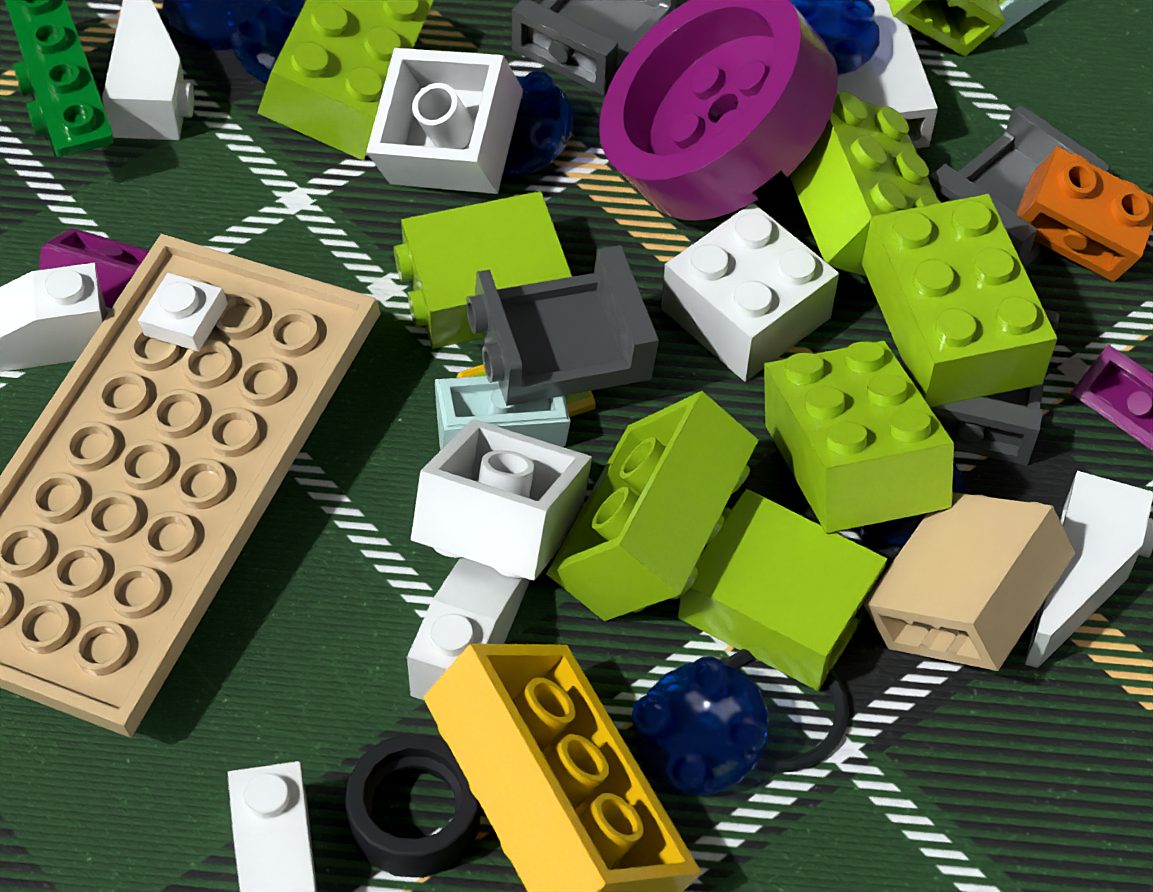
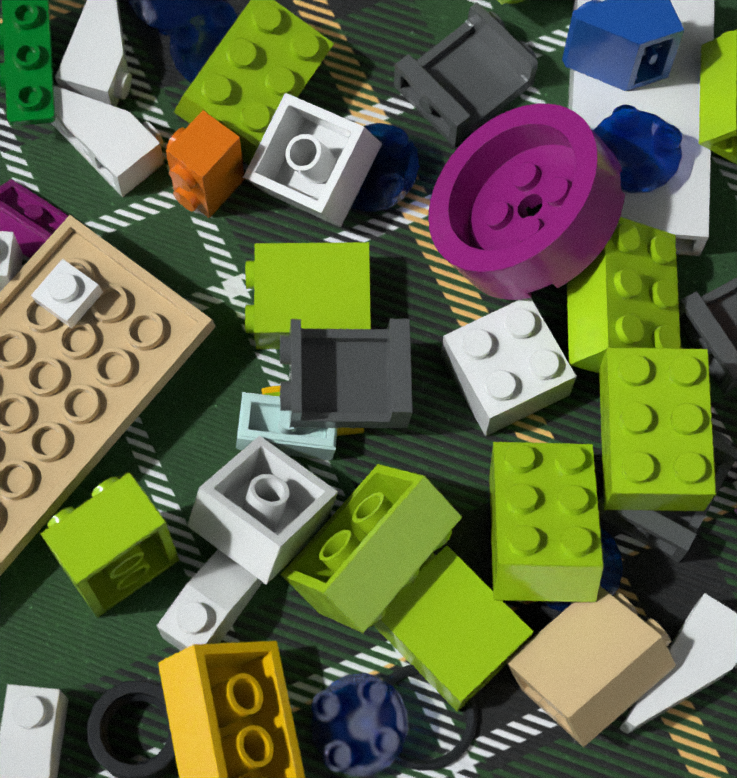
camera: 15 degrees right, 15 degrees up
(181, 157) = (109, 139): none -> white slope
(315, 149) = (204, 164): none -> orange brick
(323, 568) = (111, 543): none -> lime brick

